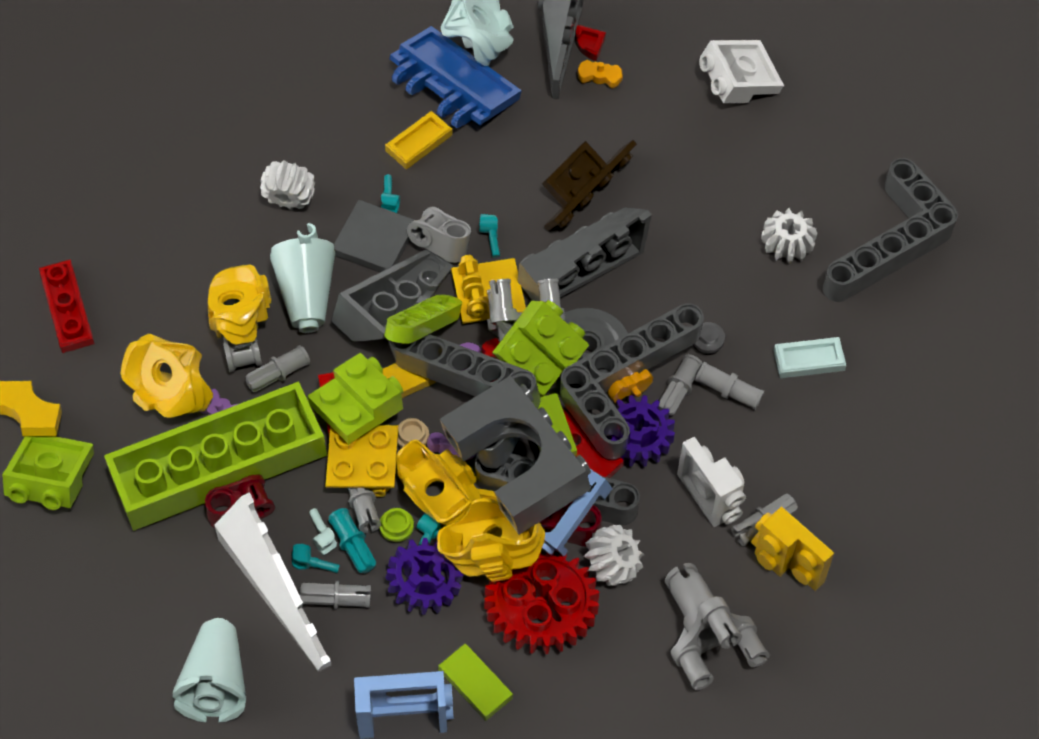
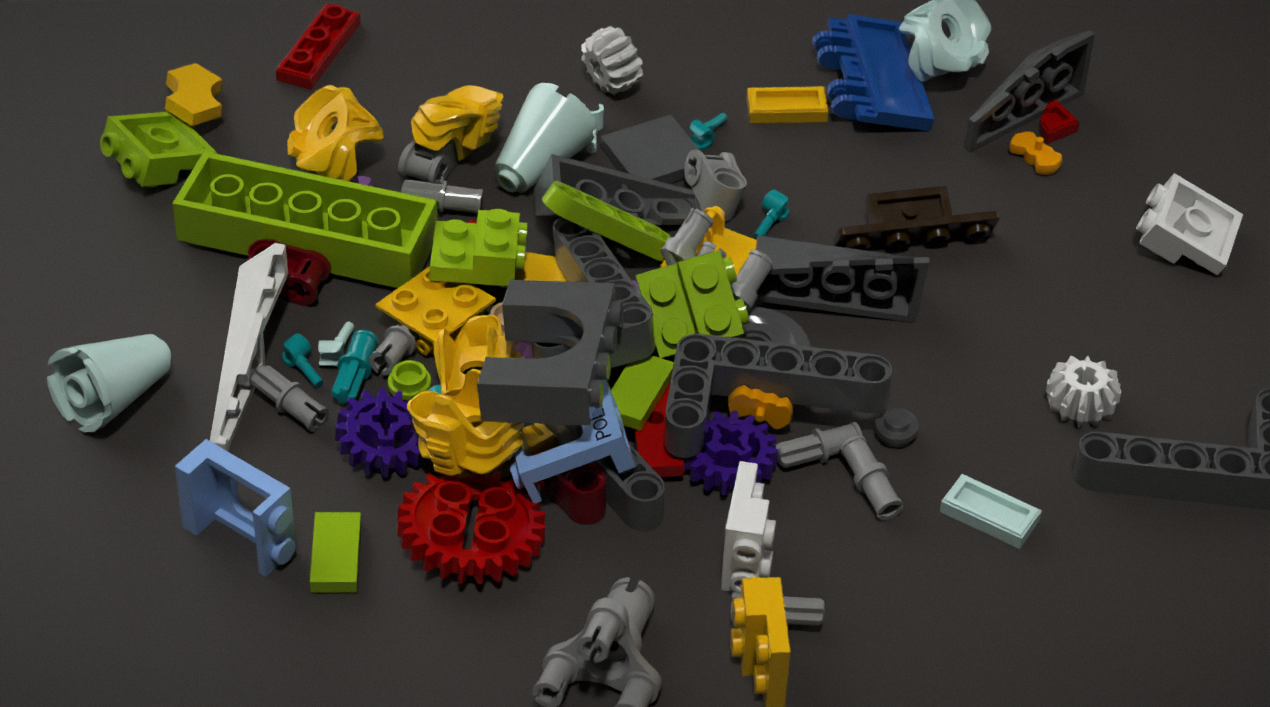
camera: 40 degrees right, 15 degrees down
(614, 555) = (595, 525): white gear -> none

